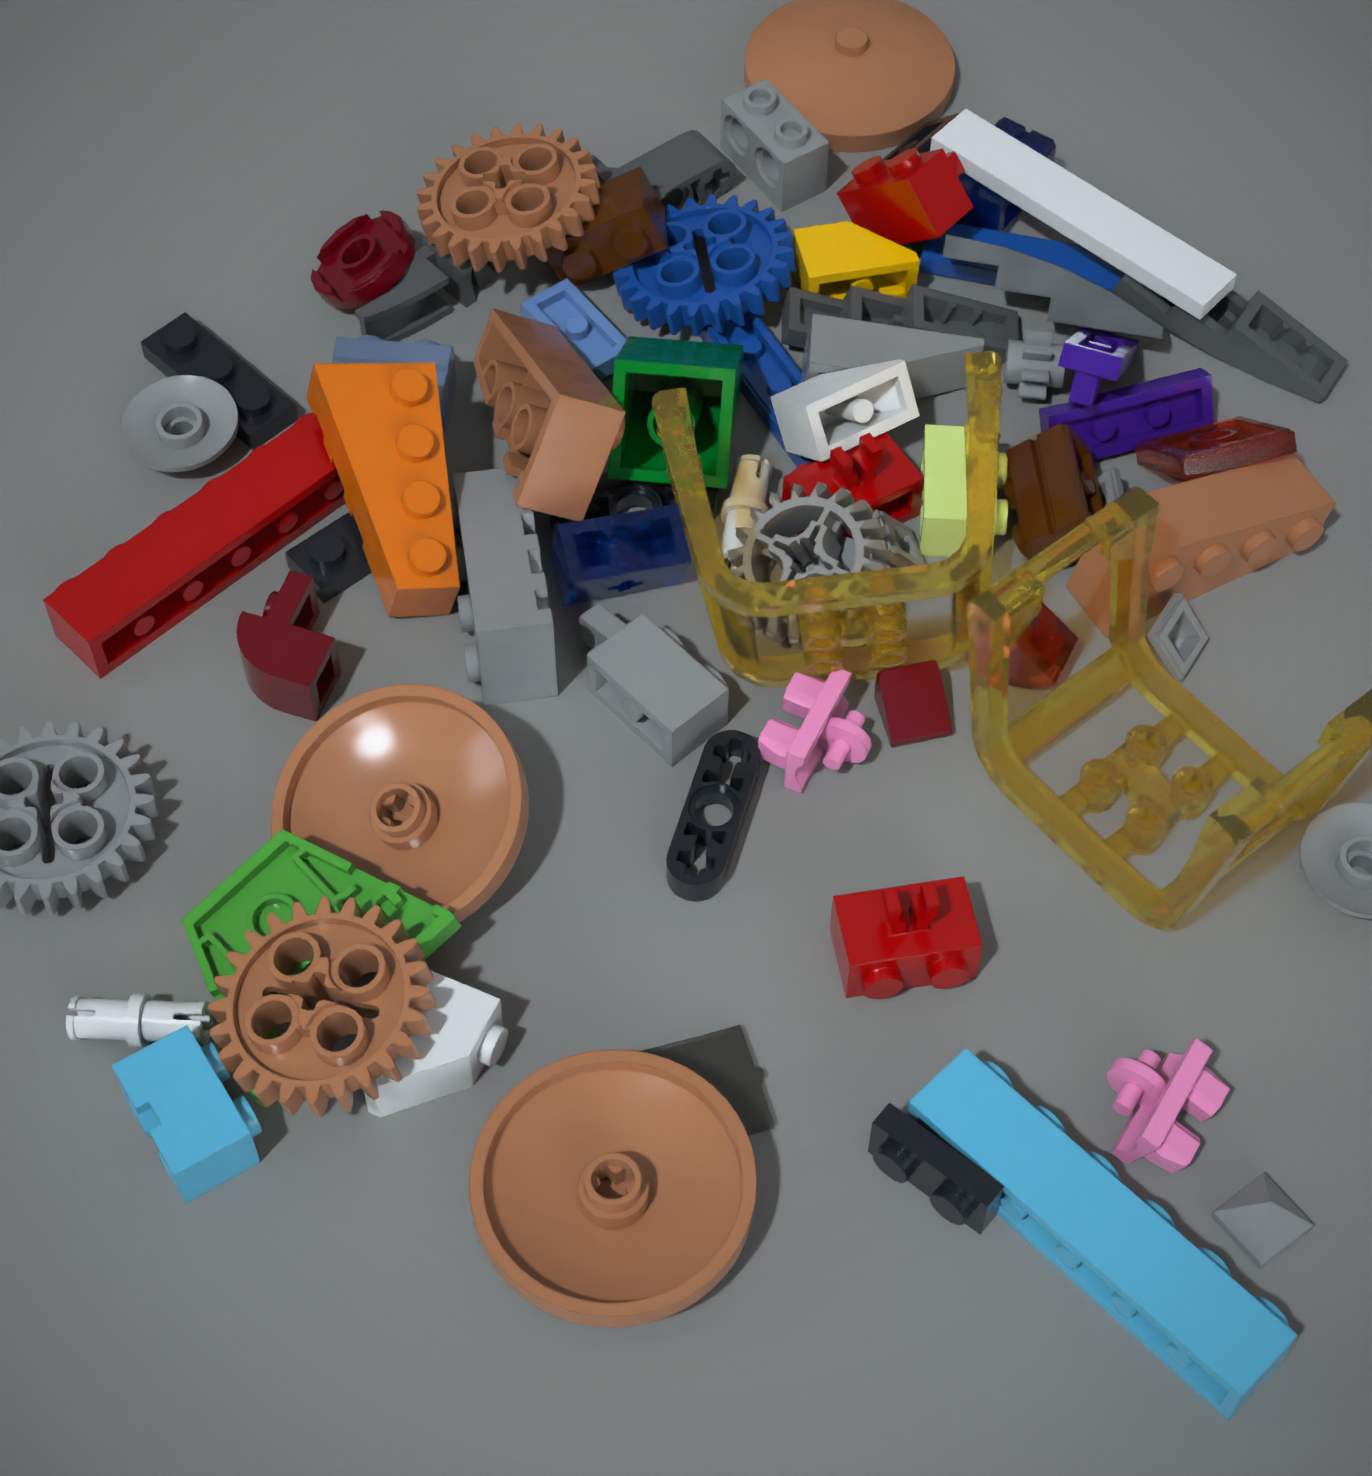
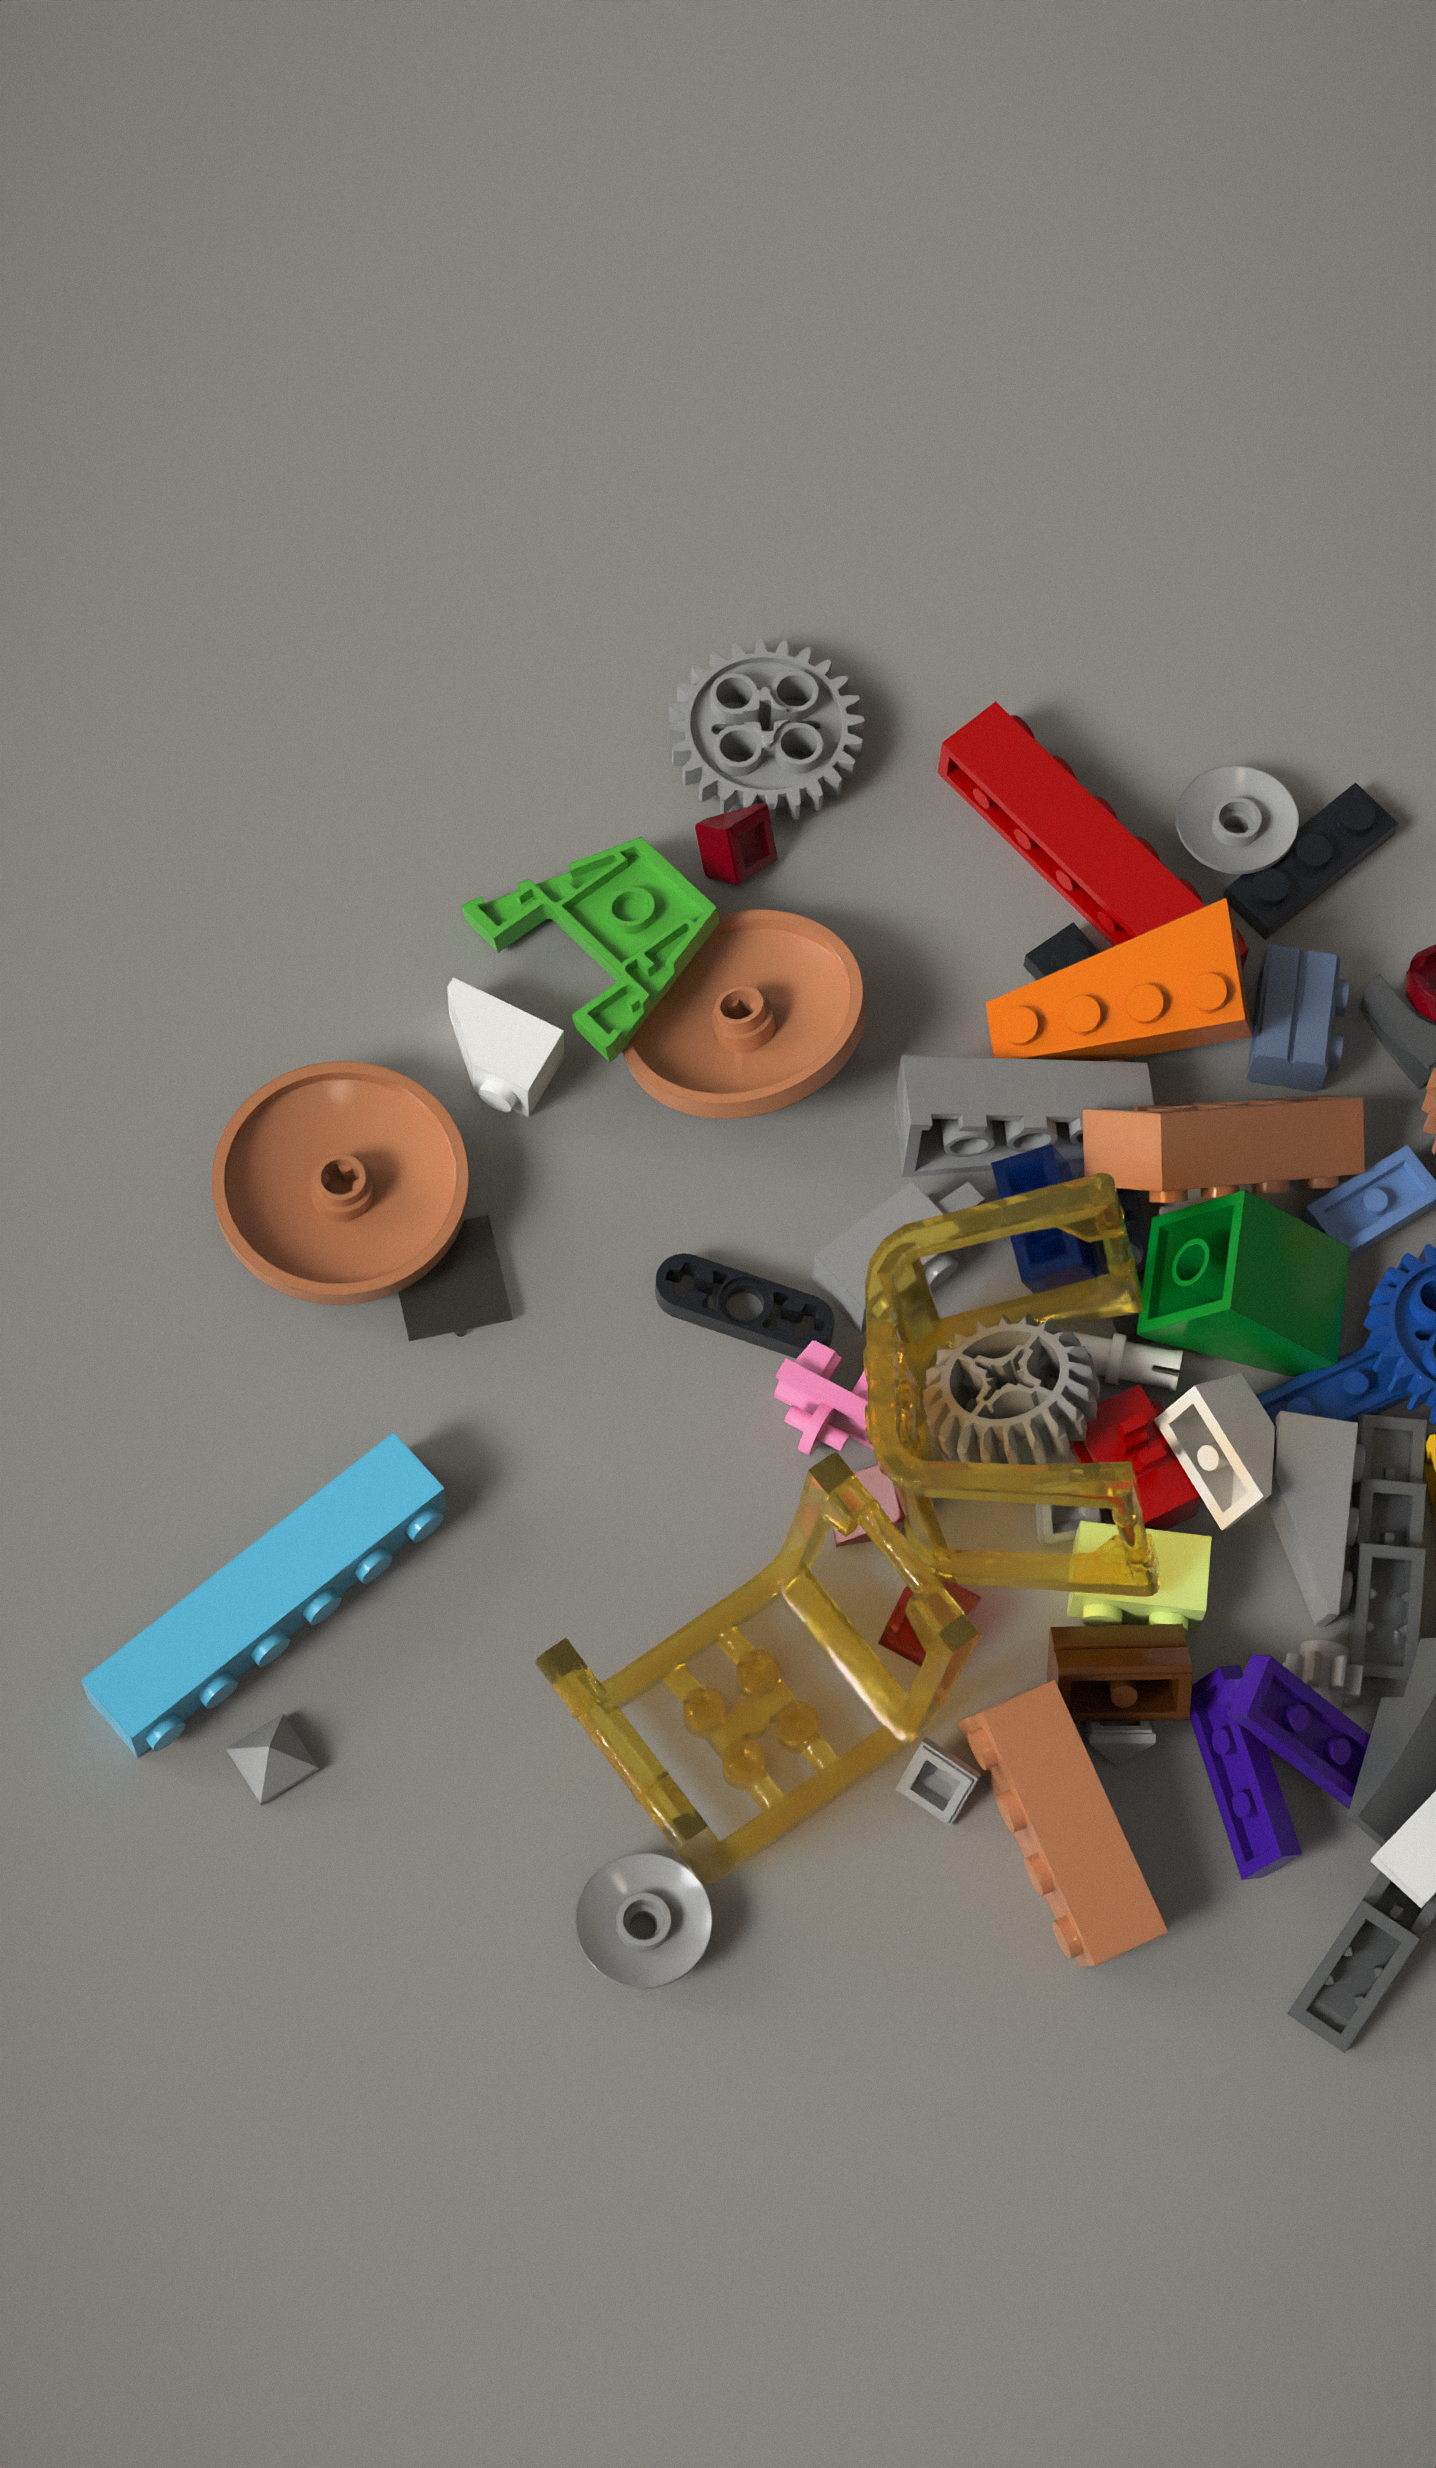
camera: 90 degrees right, 10 degrees up
(136, 1019) = (549, 813): white pin -> none
(188, 1113) = (451, 854): medium azure brick -> none
(190, 837) = (736, 843): none -> dark red slope
(282, 656) = (944, 910): dark red brick -> none
(301, 1059) = (476, 925): nougat gear -> none
(905, 938) = (583, 1462): red brick -> none
(951, 1181) = (351, 1440): black plate -> none
(1159, 1096) = (410, 1696): bright pink hips -> none
(1215, 447) = (1183, 1852): clear red tile -> none

